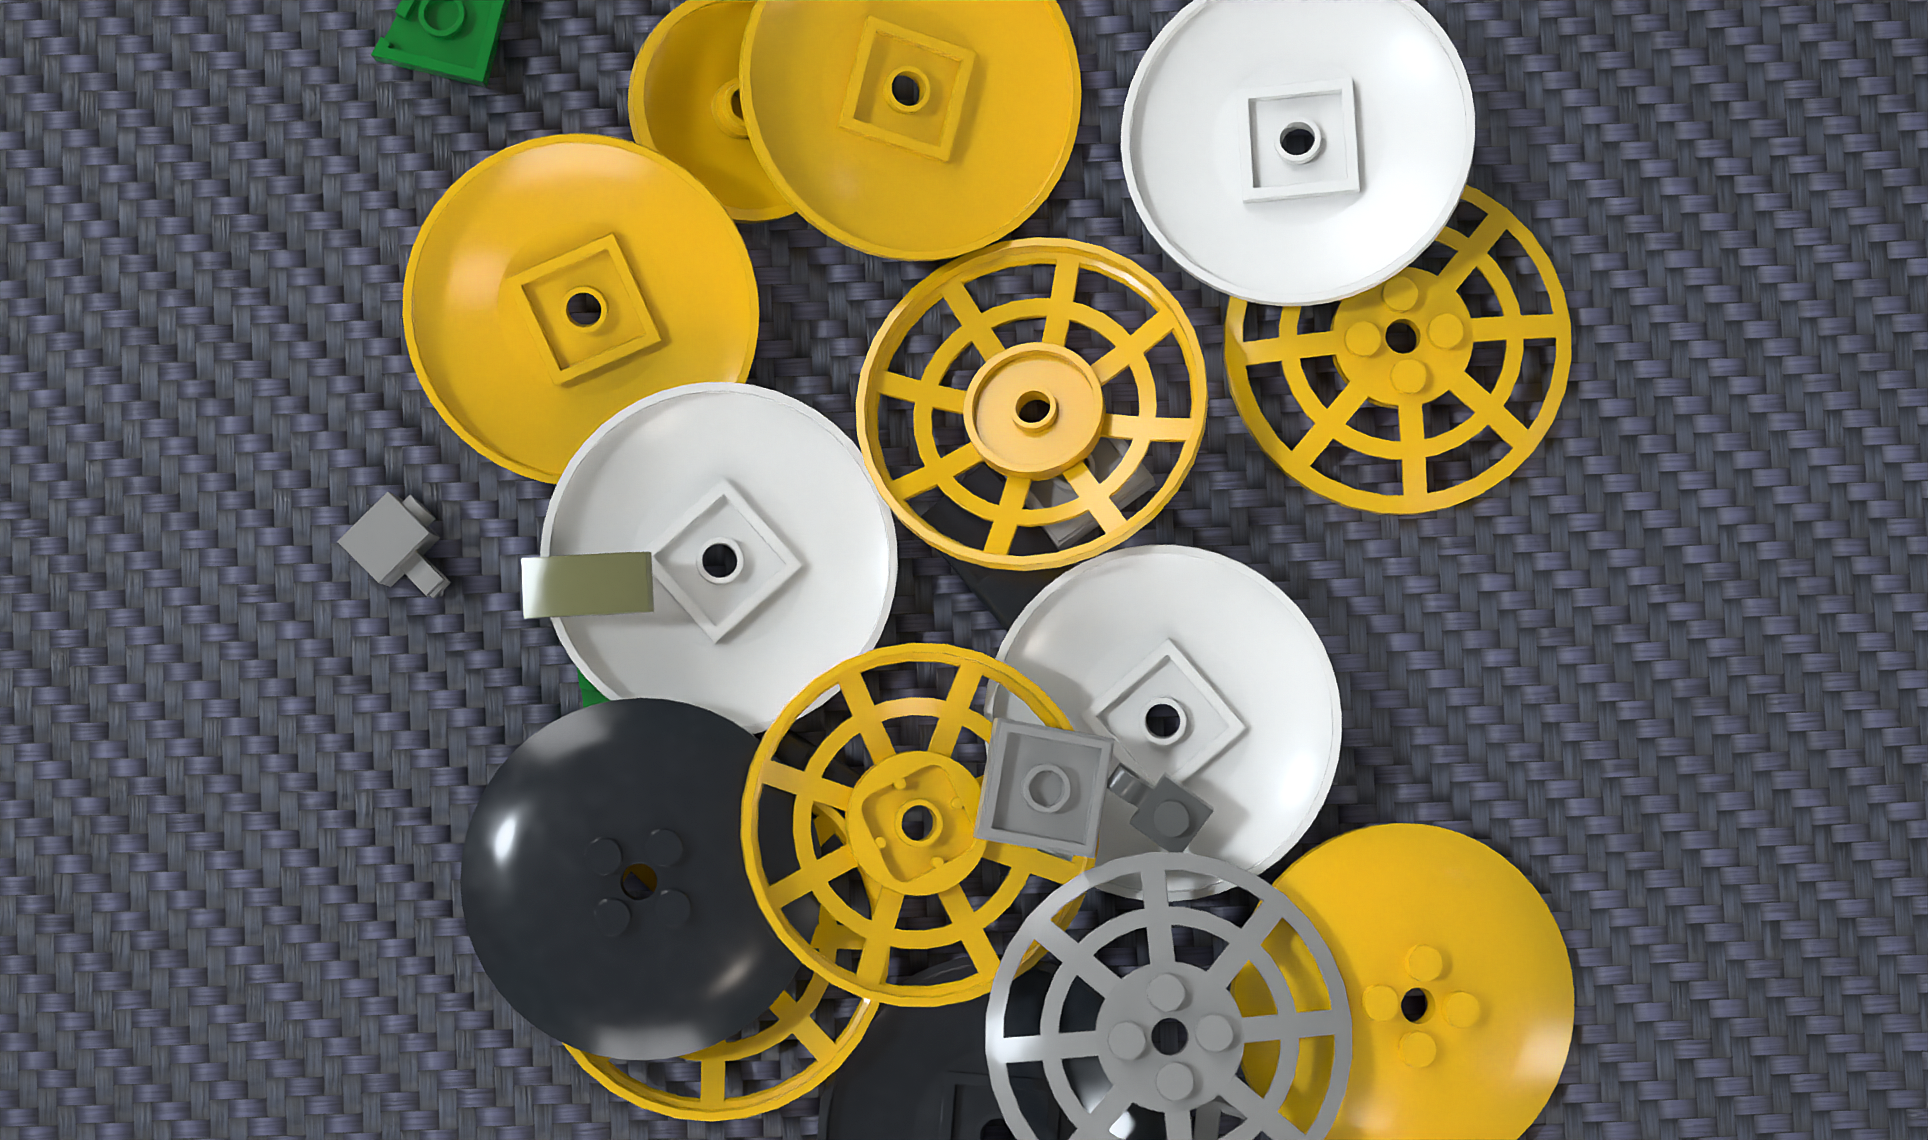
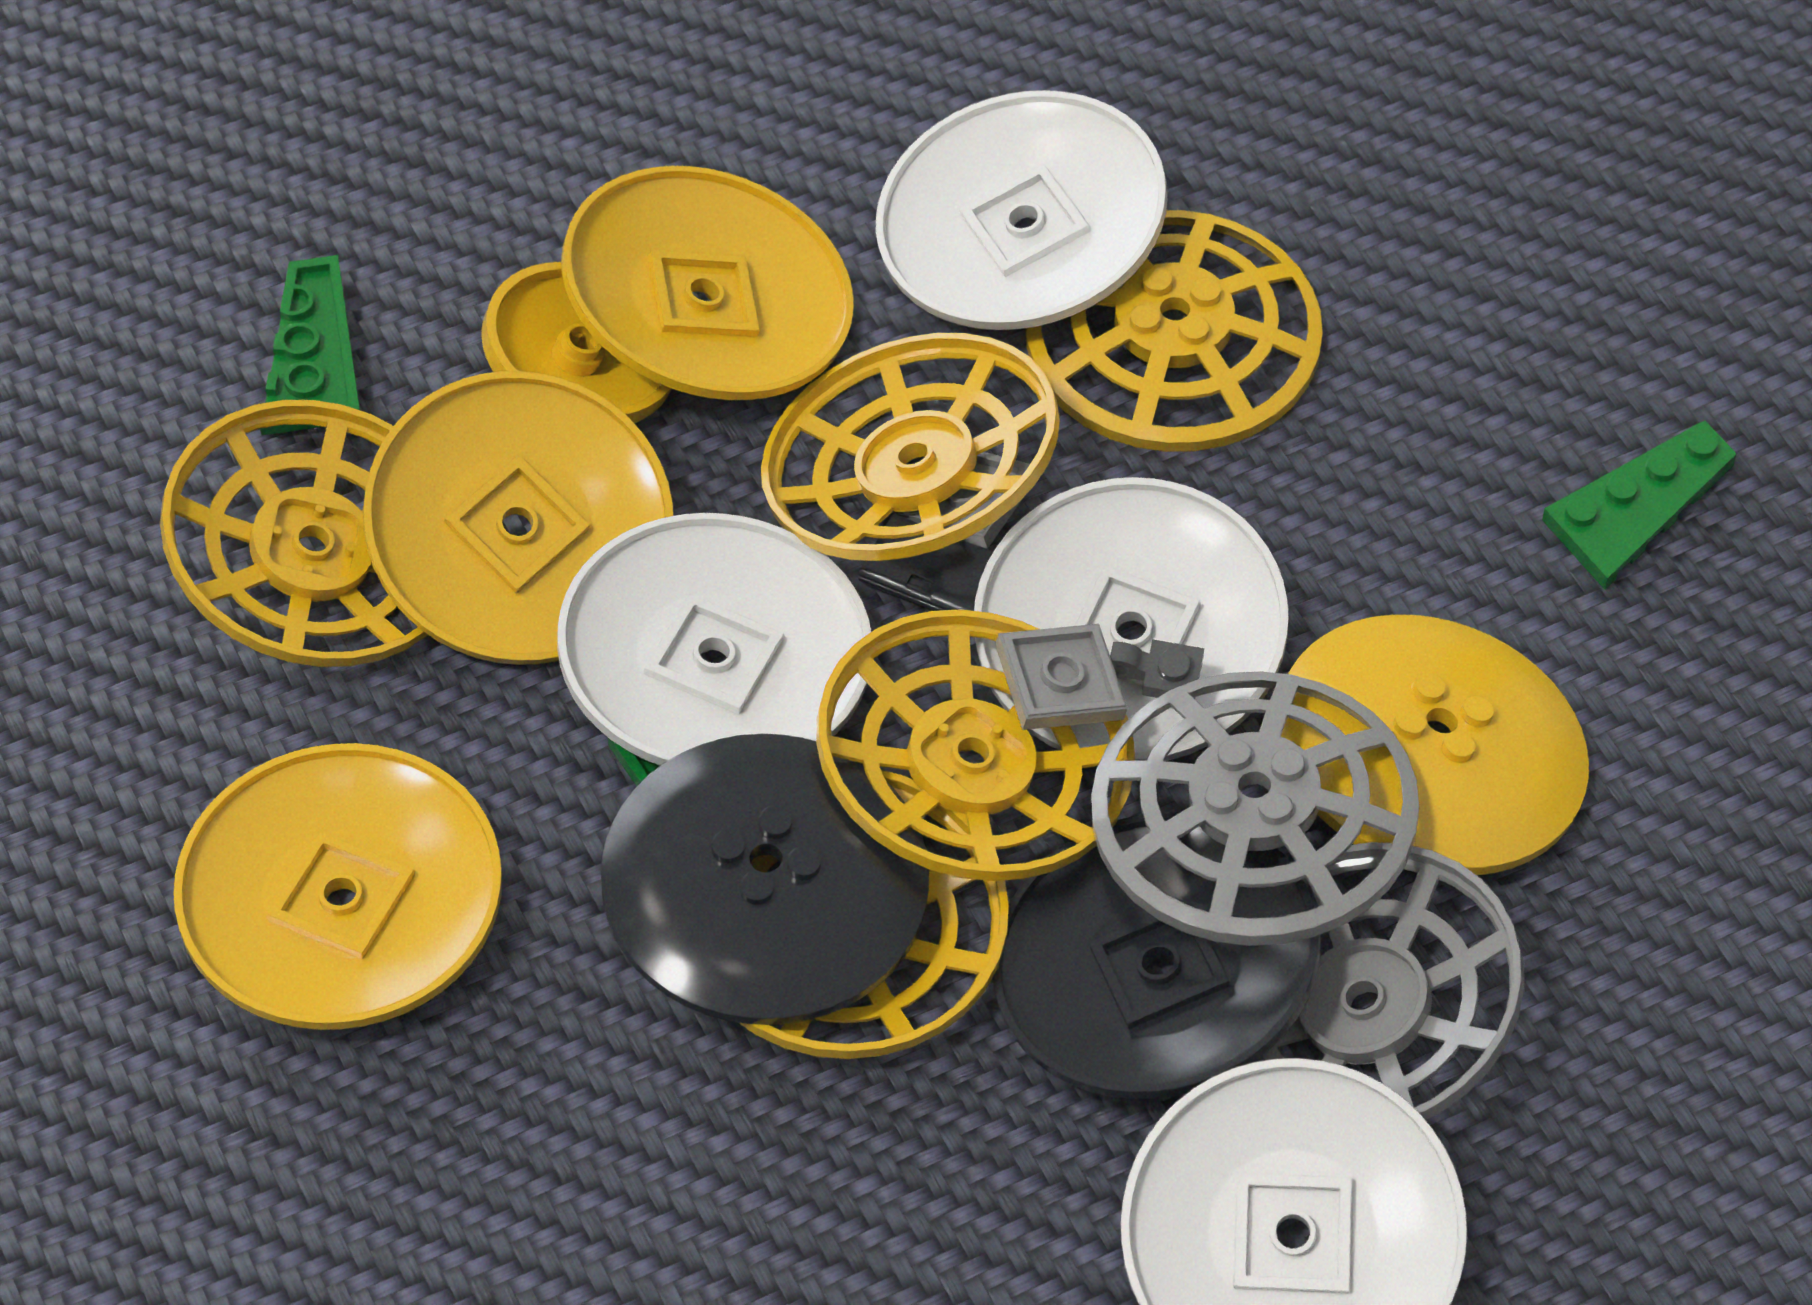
camera: 25 degrees left, 30 degrees down
(140, 671) = (323, 822): none -> yellow dish
(325, 221) = (278, 530): none -> yellow dish
(393, 543) = (440, 736): light grey brick -> none
(587, 585) = (621, 673): olive slope -> none
(1767, 789) = (1628, 507): none -> green wing

